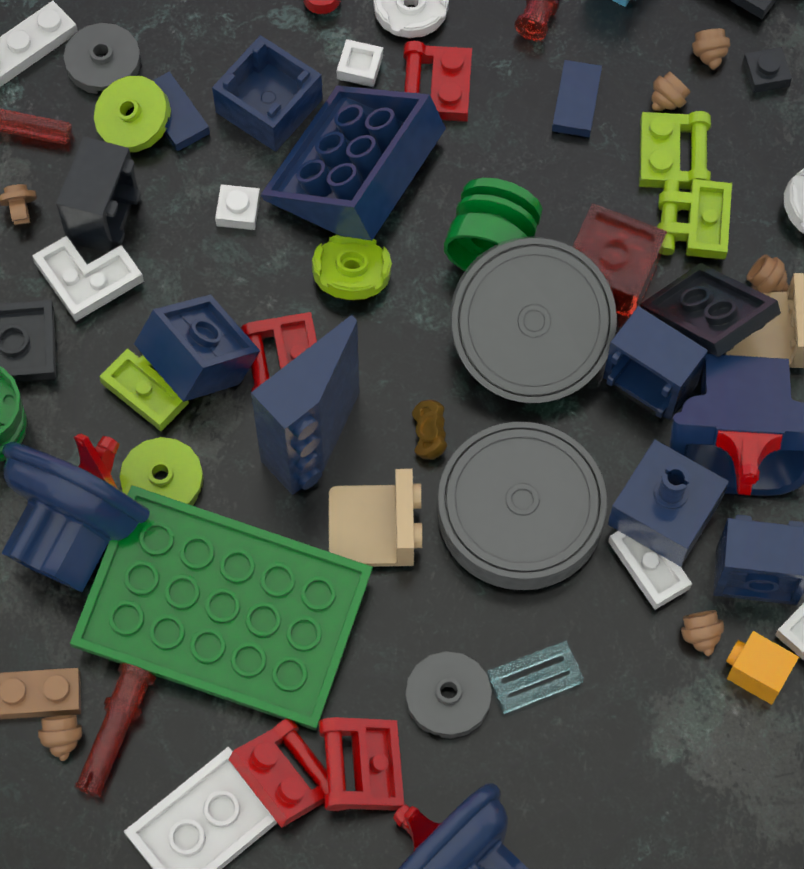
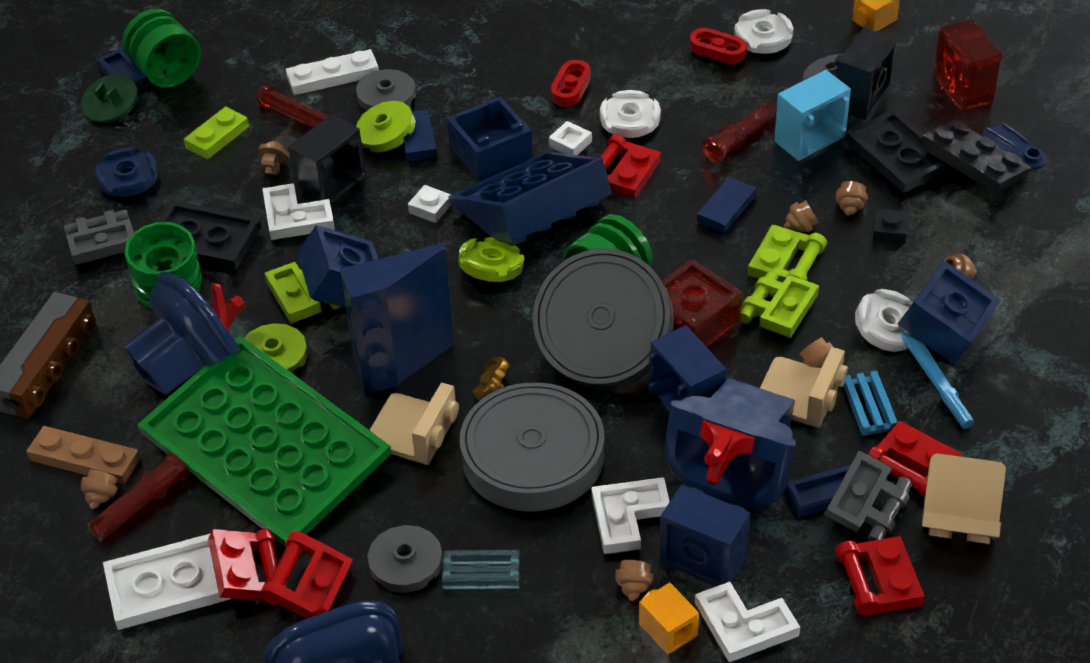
camera: 25 degrees right, 20 degrees down
(667, 502) = (644, 470): dark blue brick -> none
(712, 308) = (756, 355): black plate -> none

